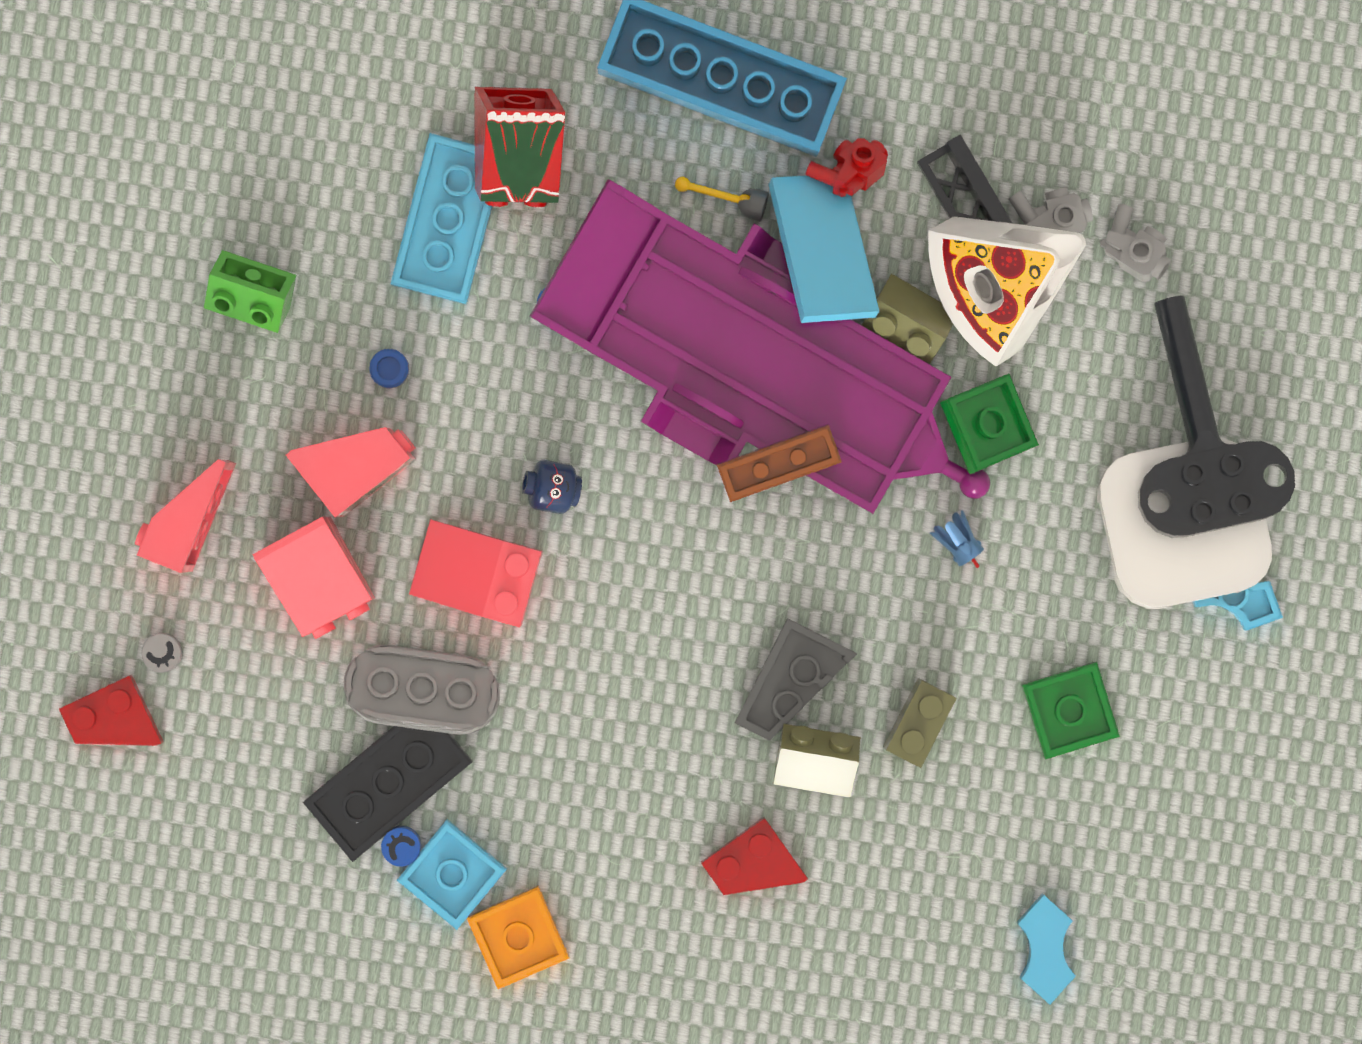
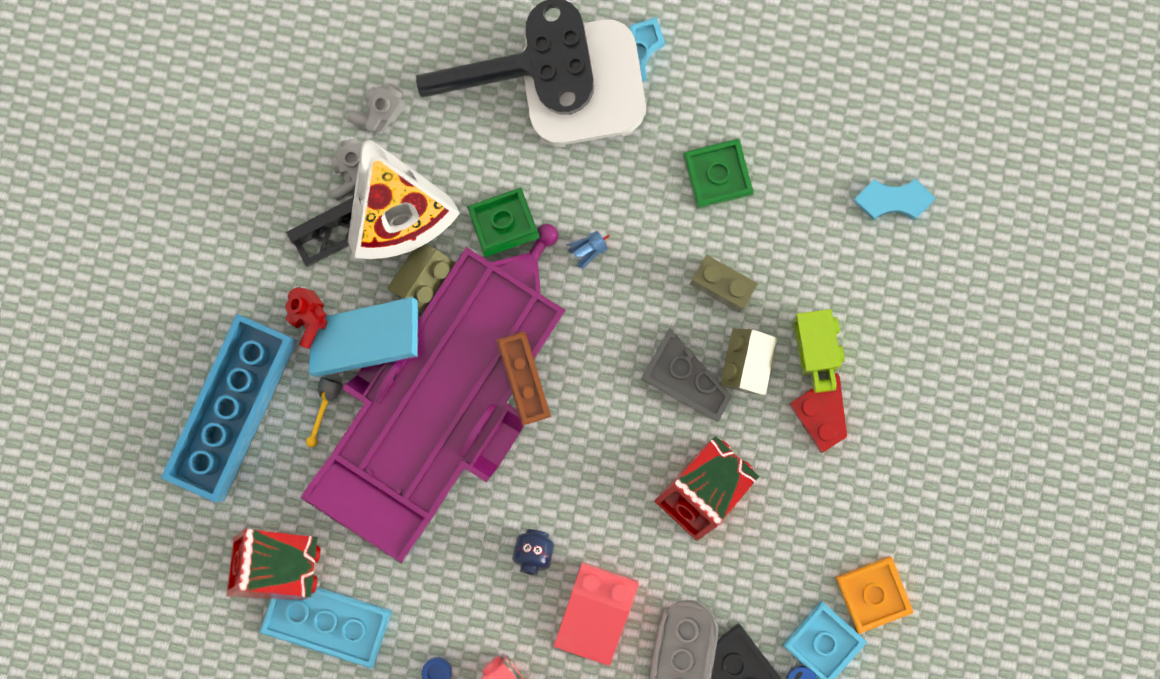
camera: 85 degrees left, 5 degrees down
(646, 711) = (707, 489): none -> slope
(840, 853) = (819, 347): none -> lime brick

